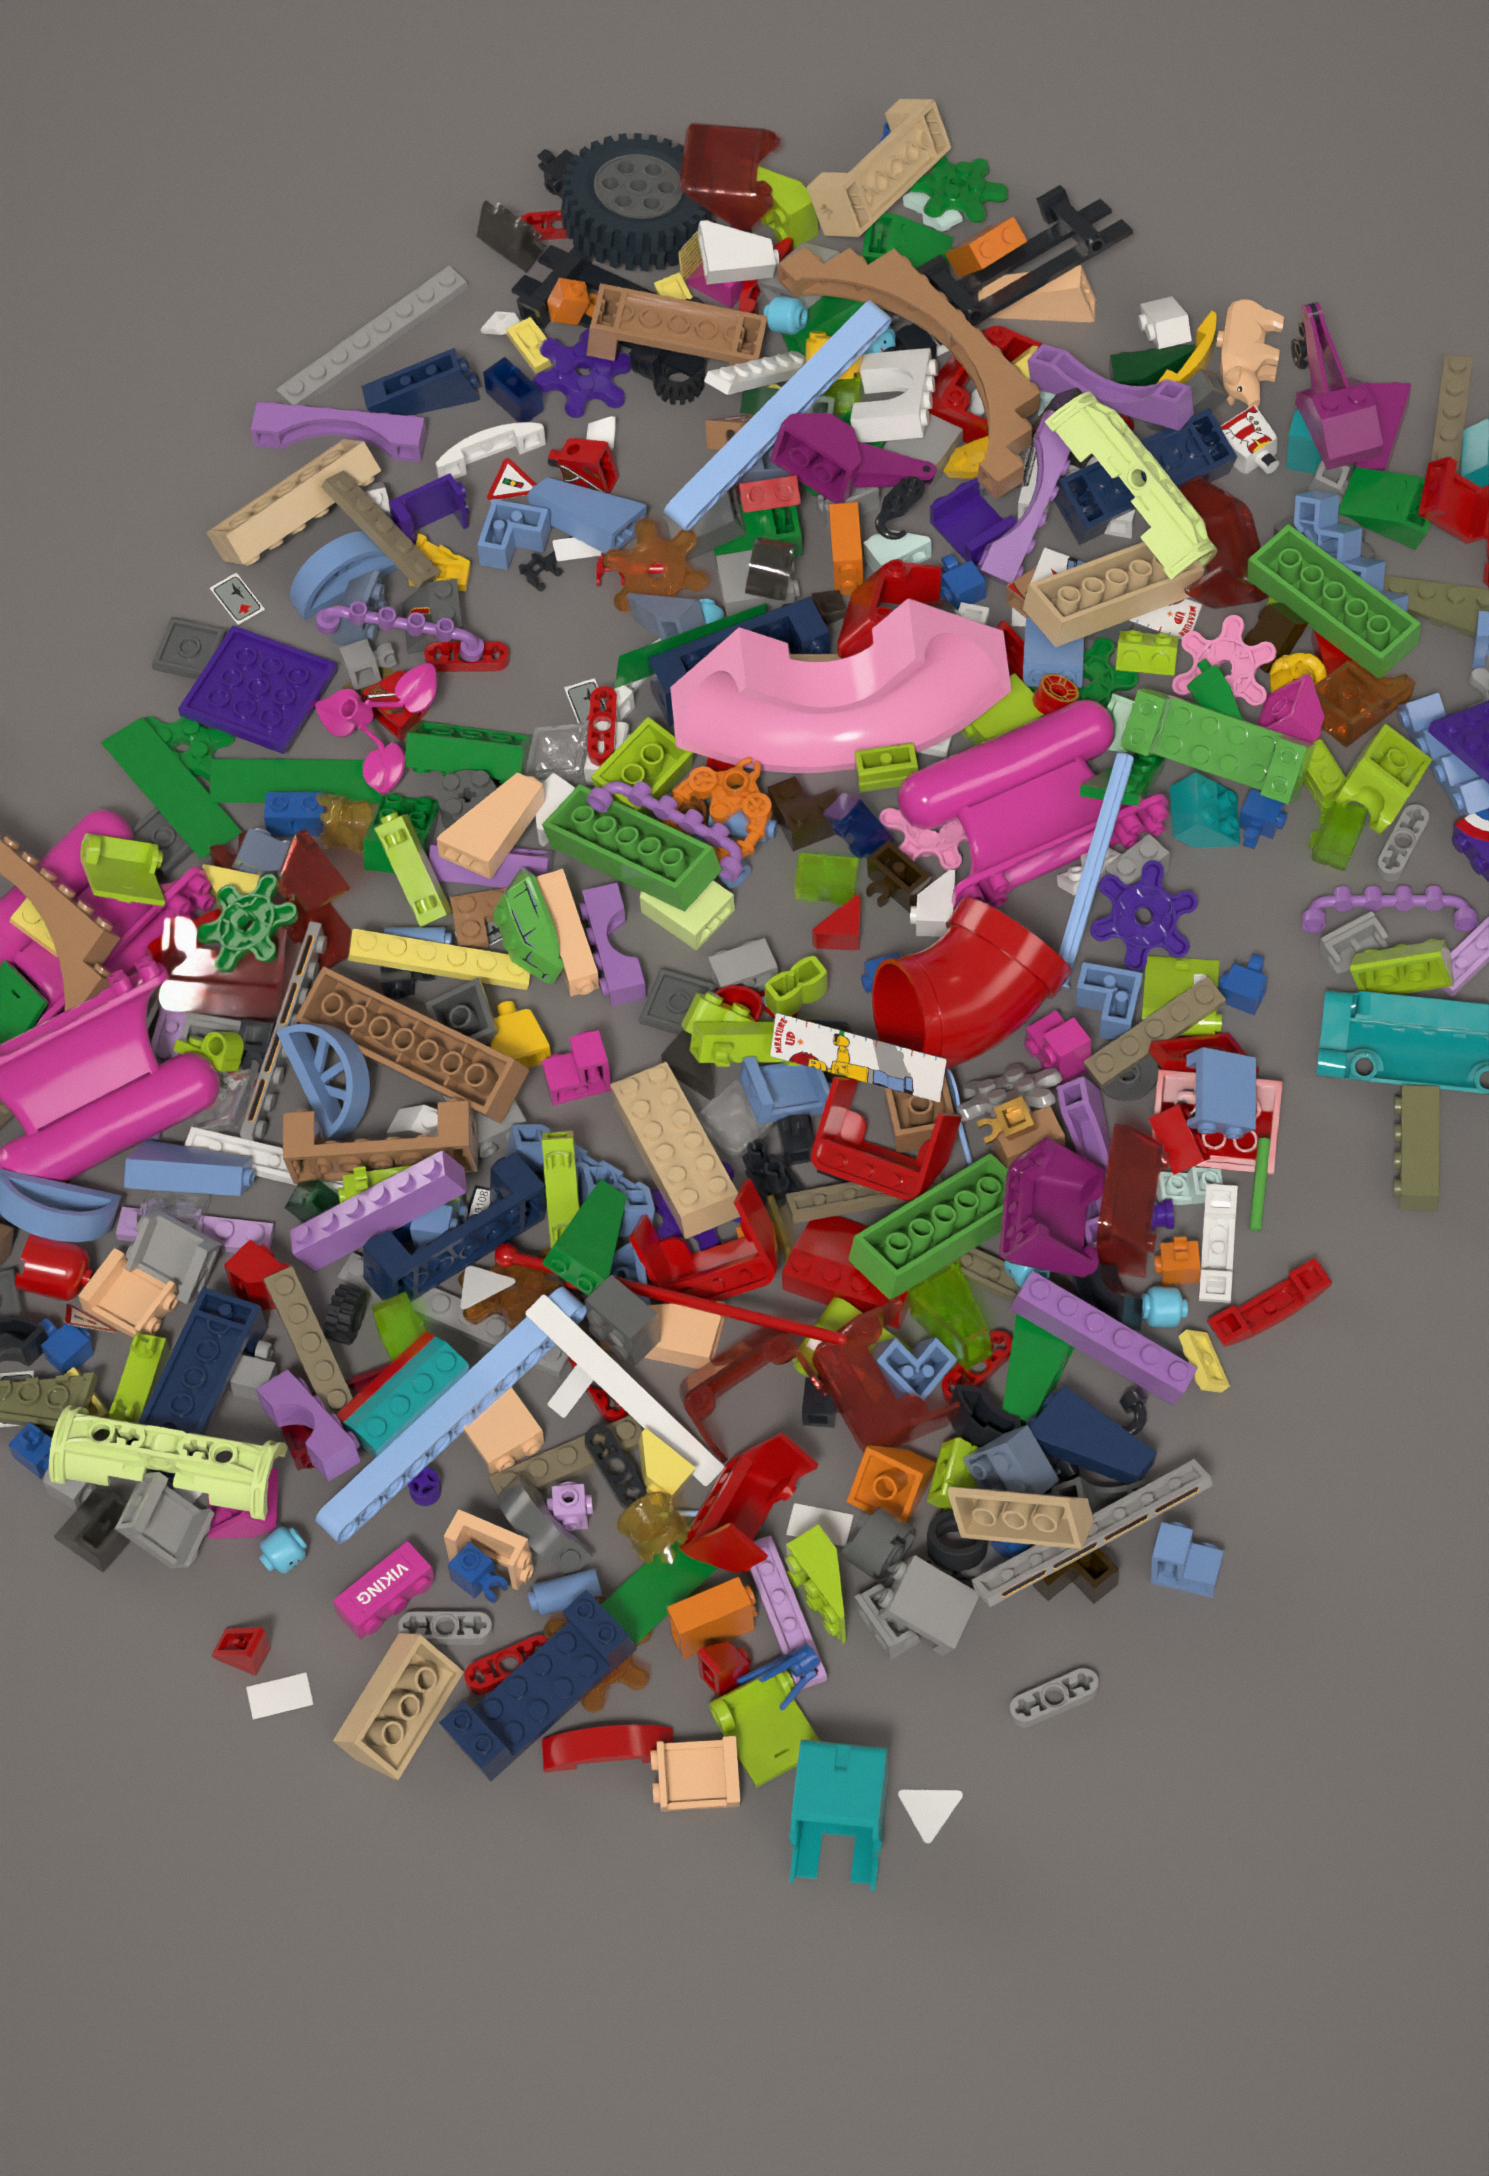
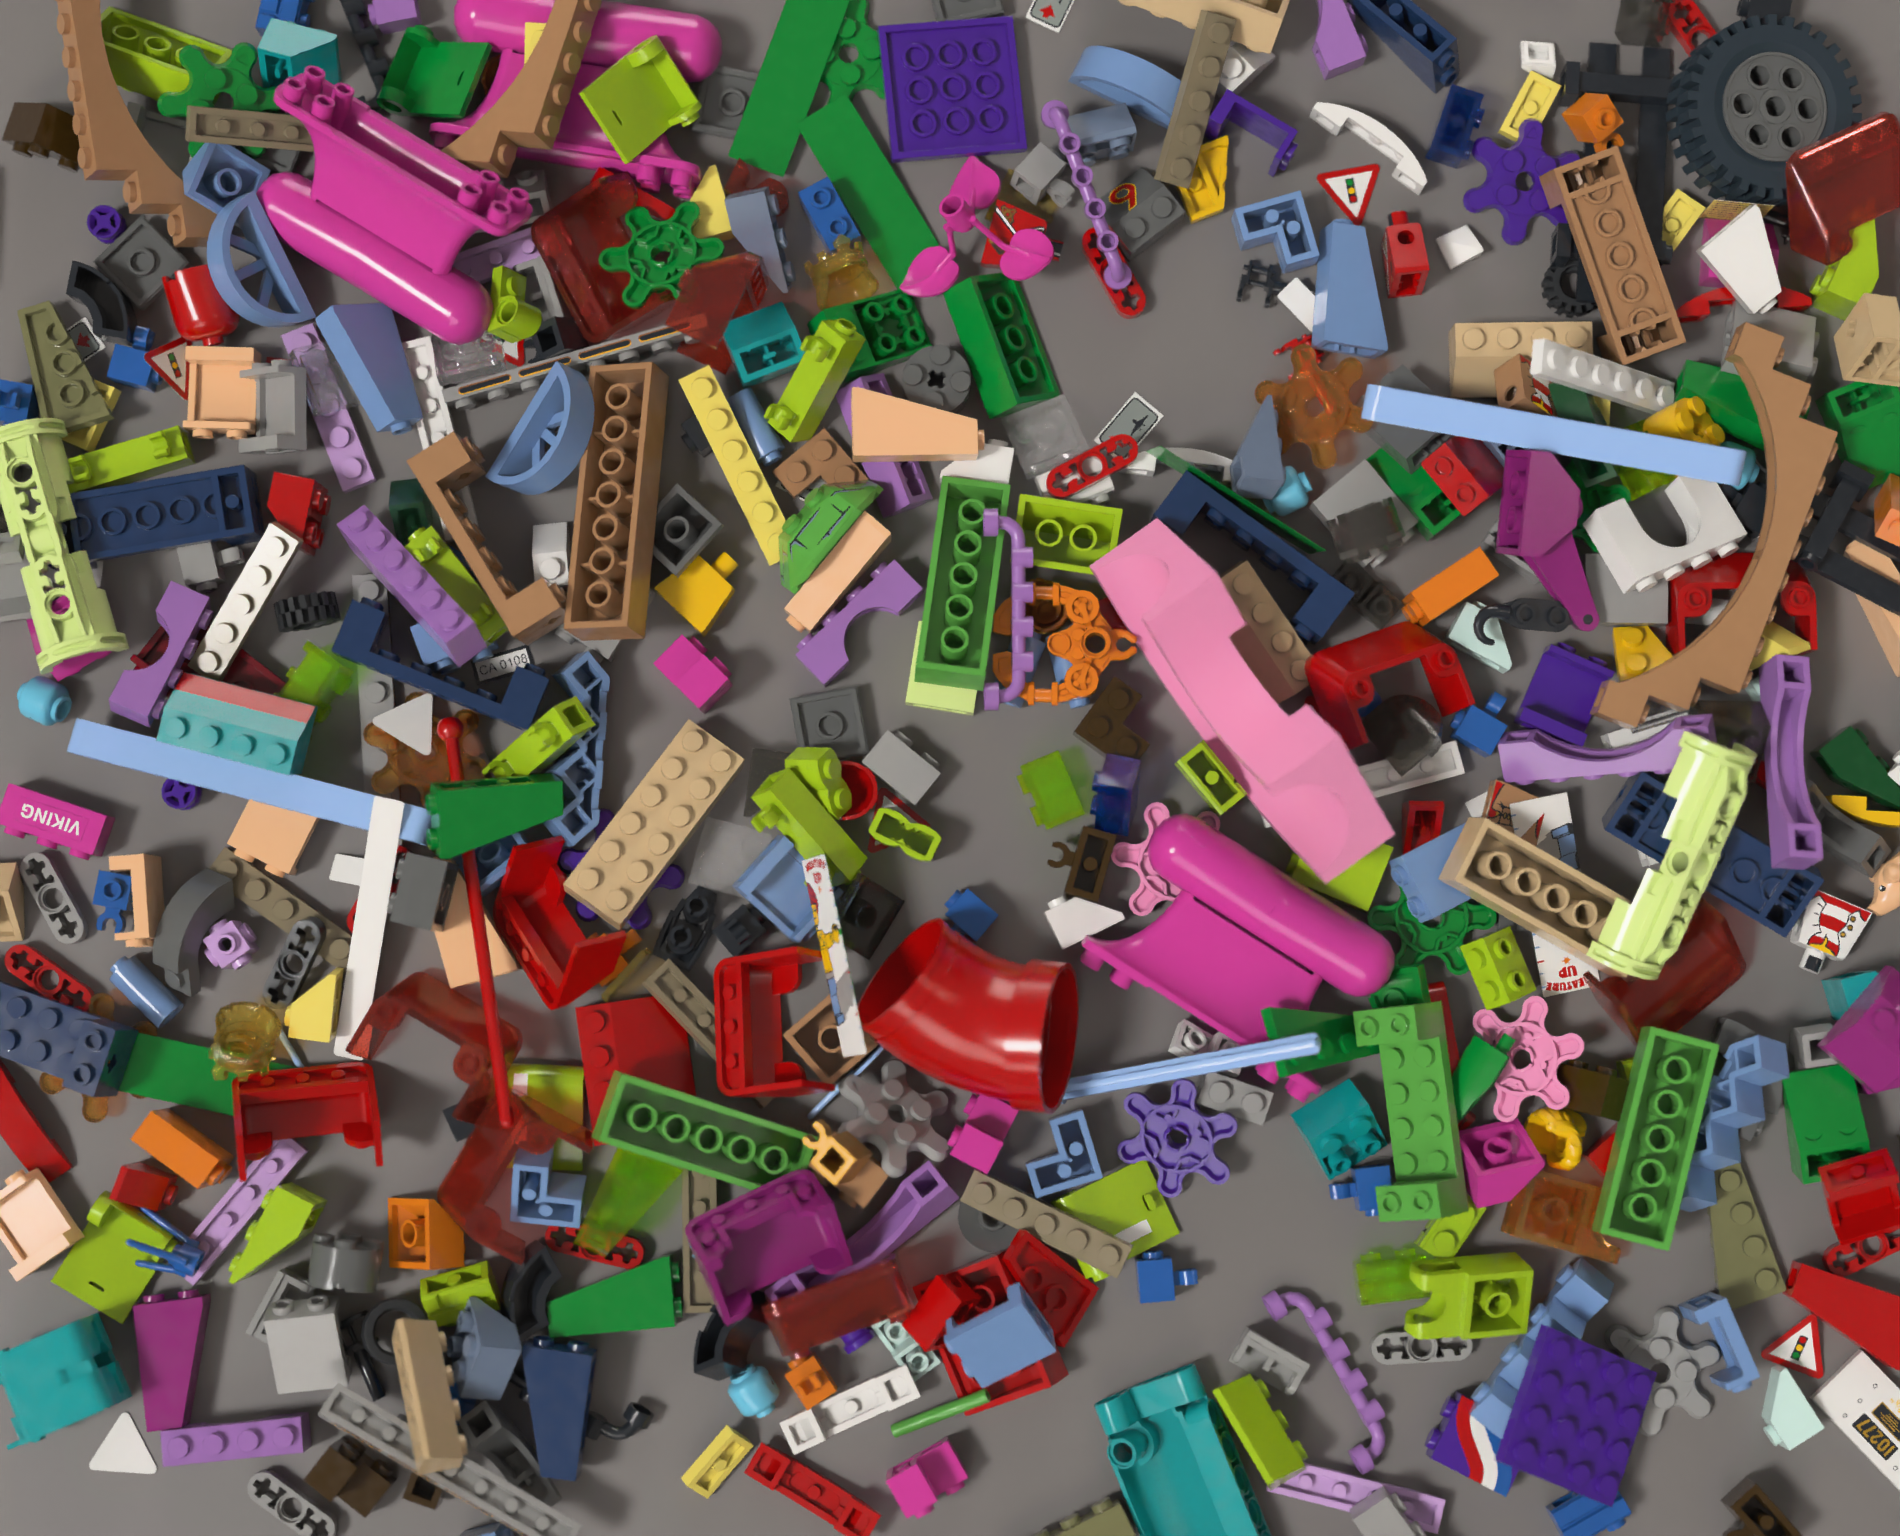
camera: 55 degrees right, 25 degrees up
(365, 903) = (763, 344): none -> teal slope
(685, 447) = (1483, 347): none -> tan slope
(786, 315) = (1700, 359): medium azure head -> none
(834, 1524) = (352, 1184): white sticker -> none
(841, 928) = (1003, 839): red slope -> none
(866, 1717) = (169, 1355): none -> magenta slope
(963, 1720) = (236, 1440): none -> medium lavender arch
(1054, 693) = (1395, 912): red wheel -> none
(1054, 1631) = (351, 1476): none -> dark brown brick
(1103, 1338) = (671, 1360): medium lavender brick -> none
(1304, 1217) = (925, 1476): none -> dark pink brick

